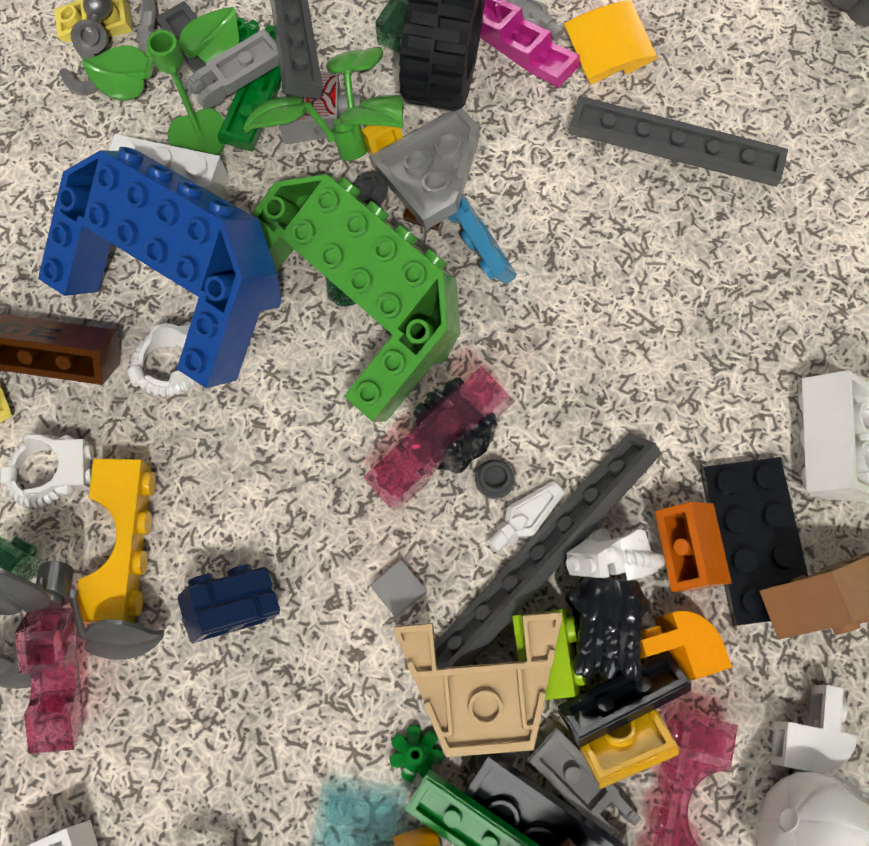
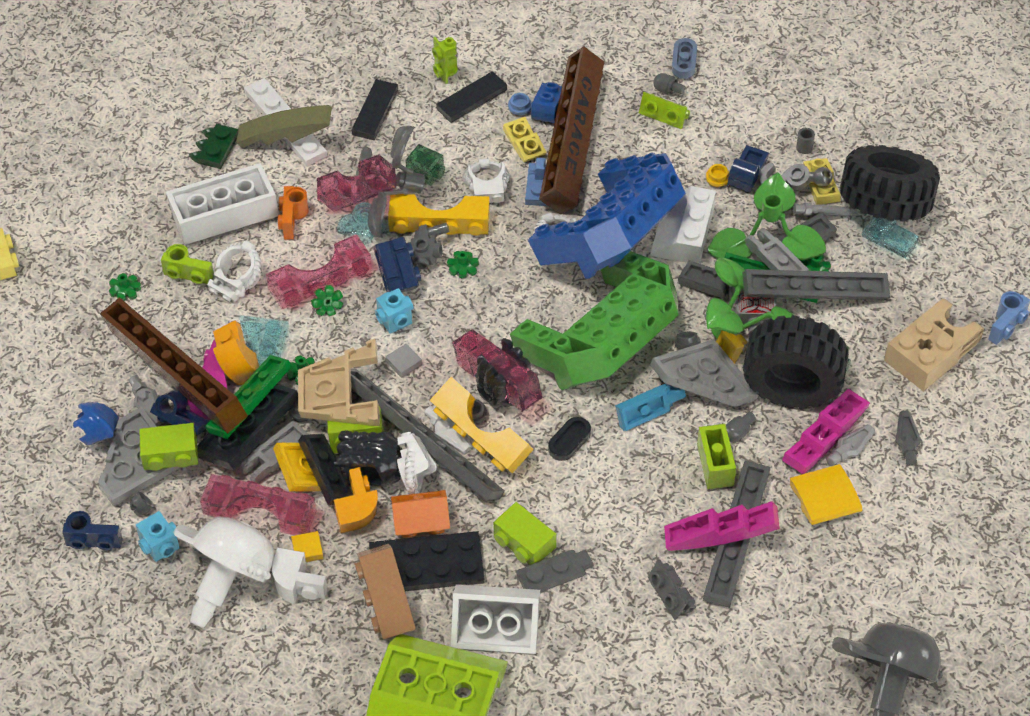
camera: 90 degrees right, 20 degrees down
(20, 31) = (805, 140): none -> dark grey hinge
(58, 395) = (534, 182): none -> medium blue hinge
(67, 104) = (747, 168): none -> dark blue plate
(70, 145) = (717, 175): none -> yellow plate
(107, 804) = (294, 207): none -> orange plate
(119, 684) = (358, 224): none -> clear light blue plate
(179, 561) = (425, 245): none -> dark grey piece
(212, 504) = (462, 263): none -> green plant
(251, 782) = (294, 285): none -> clear pink arch
(261, 164) = (703, 279): none -> dark grey plate
(282, 720) = (327, 301): none -> green plant
(318, 619) = (394, 310): none -> medium azure brick
(510, 135) = (739, 427): none -> dark grey cylinder
(534, 347) = (569, 438): none -> black tile
(569, 430) = (505, 446): none -> yellow arch
(572, 154) = (716, 456): none -> lime brick
(688, 149) = (715, 528): none -> dark pink slope
(709, 401) = (524, 534): none -> lime brick
(753, 367) = (555, 570): none -> dark grey hinge
(753, 720) = (309, 544): none -> yellow tile
(779, 216) = (666, 583): none -> dark grey hinge

